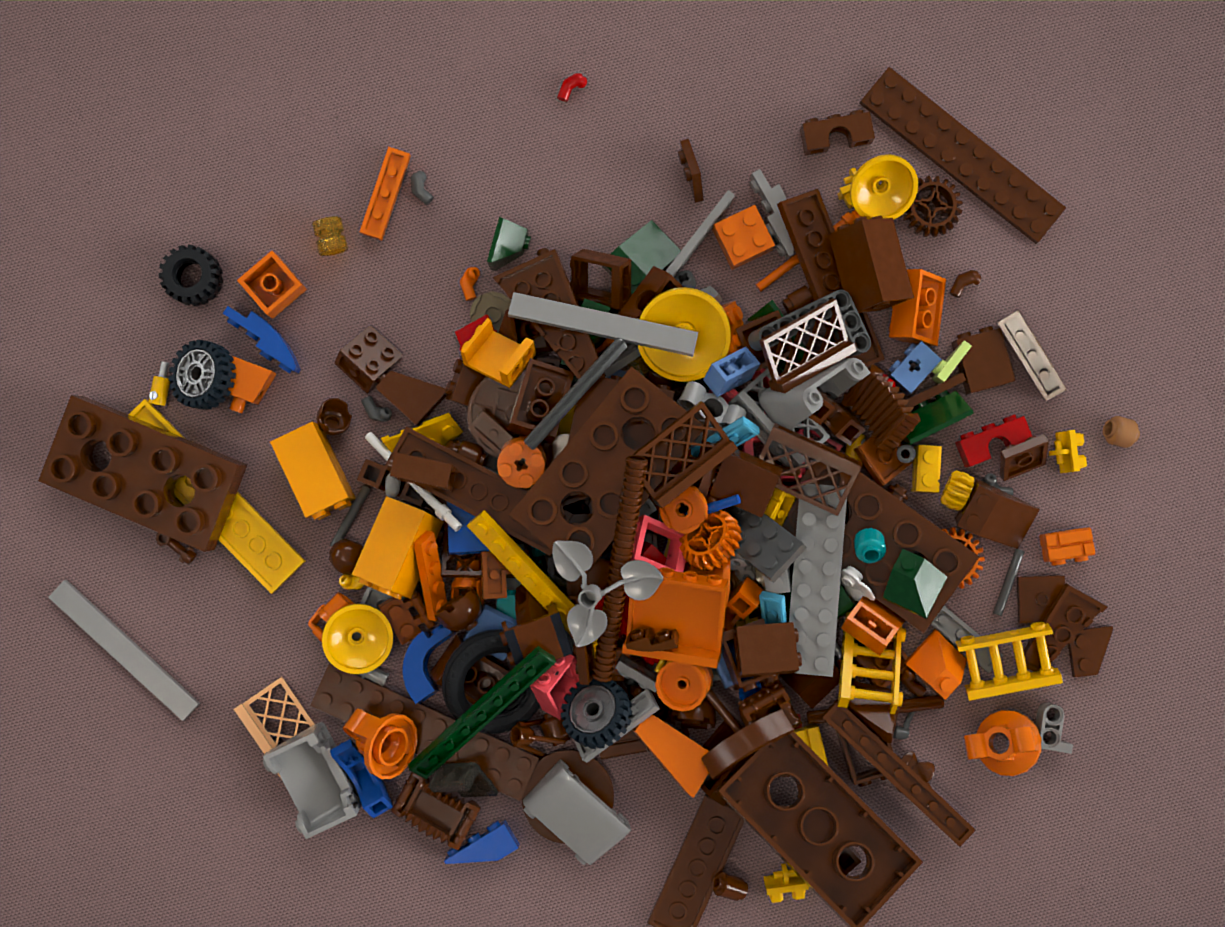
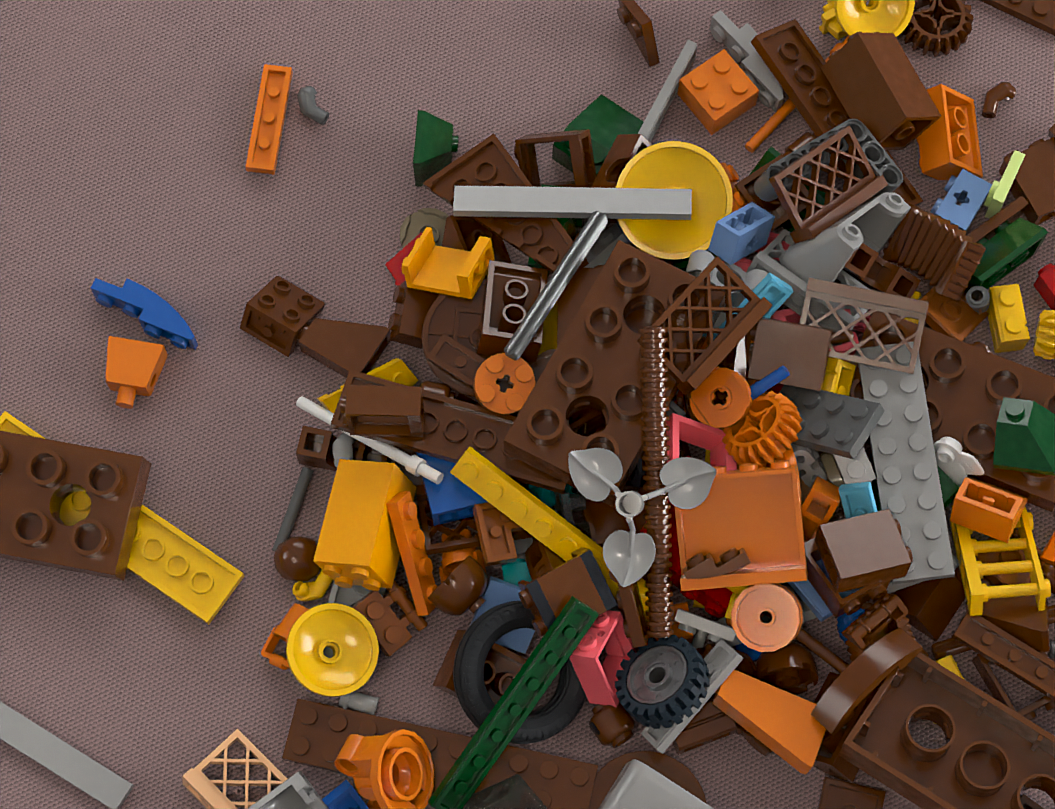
camera: 15 degrees left, 15 degrees down
(160, 386) = (22, 394): yellow piece -> none
(178, 262) = (30, 235): black tyre -> none
(186, 555) = (58, 581): reddish brown bar -> none
(202, 374) = (76, 365): wheel -> none
(272, 284) = (147, 244): orange brick -> none
(313, 471) = (238, 455): light orange brick -> none
(327, 243) = (210, 178): clear yellow wheel -> none
(333, 416) = (250, 388): reddish brown hair -> none
(374, 412) = (303, 378): dark grey arm -> none
(415, 663) = (412, 668): blue arch -> none
(467, 282) = (390, 203): orange arm -> none
(522, 735) = (573, 733): reddish brown plant -> none
(869, 545) = (961, 405): teal head -> none

